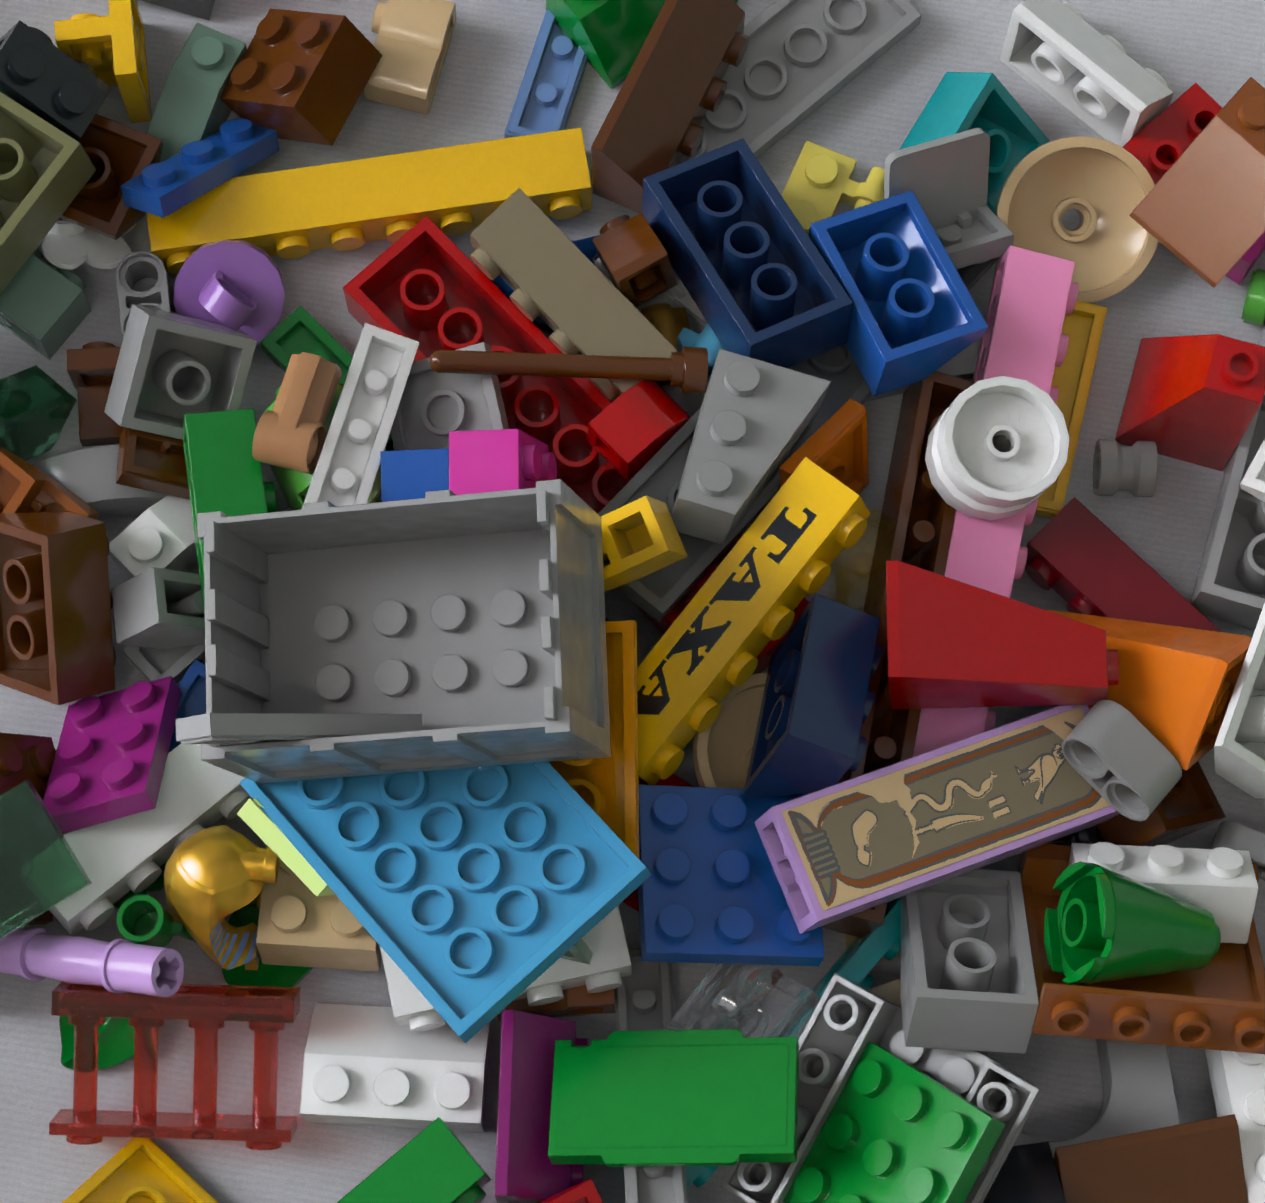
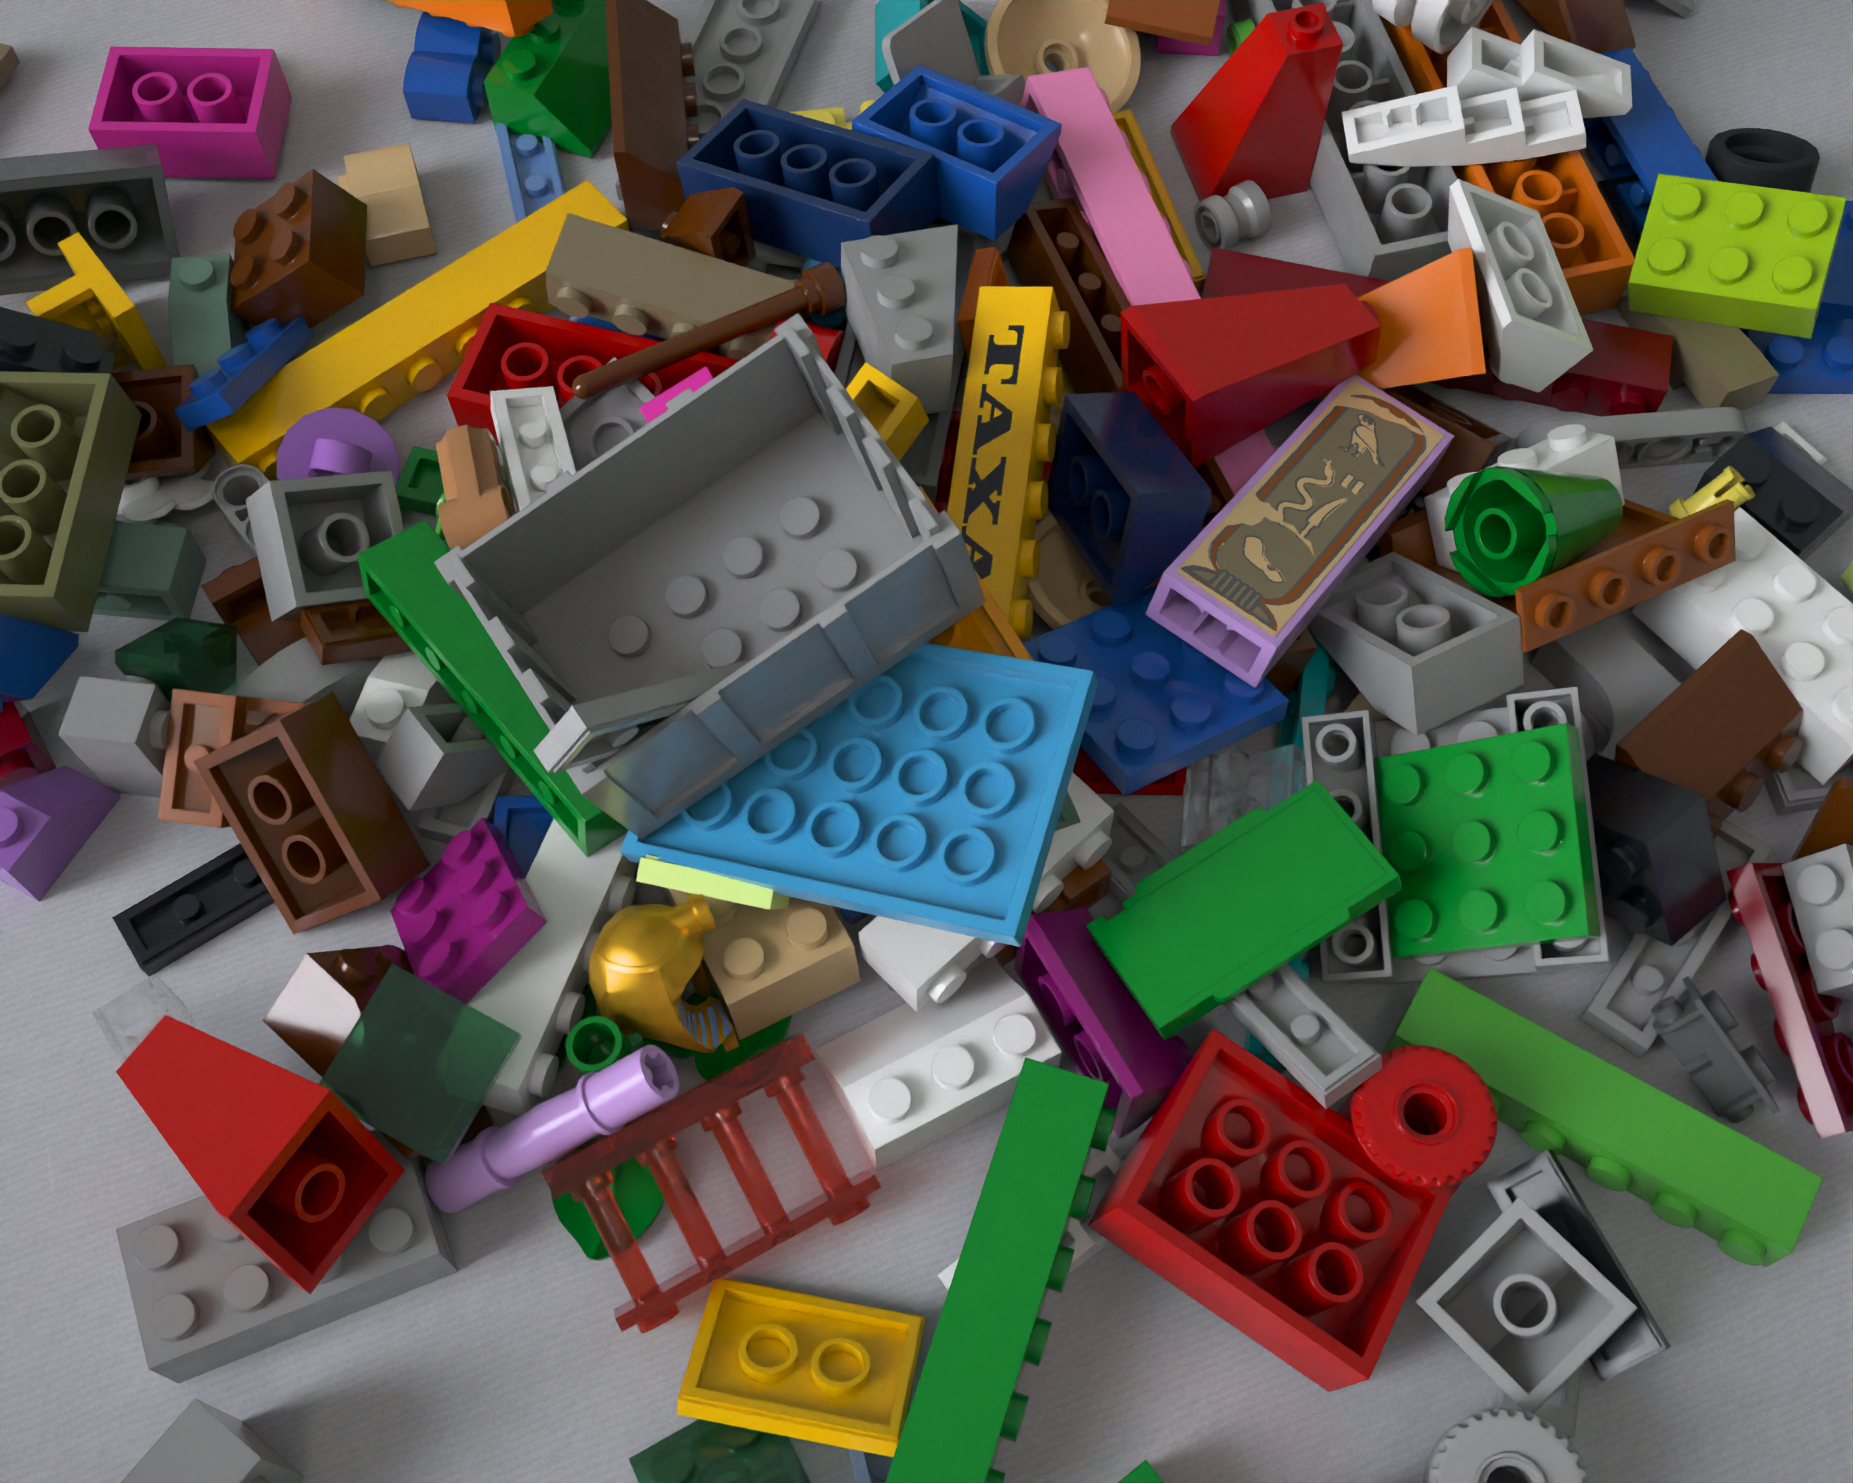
camera: 30 degrees left, 10 degrees down
(997, 448) = (1135, 212): white wheel -> none
(1121, 760) = (1426, 393): light grey beam -> none

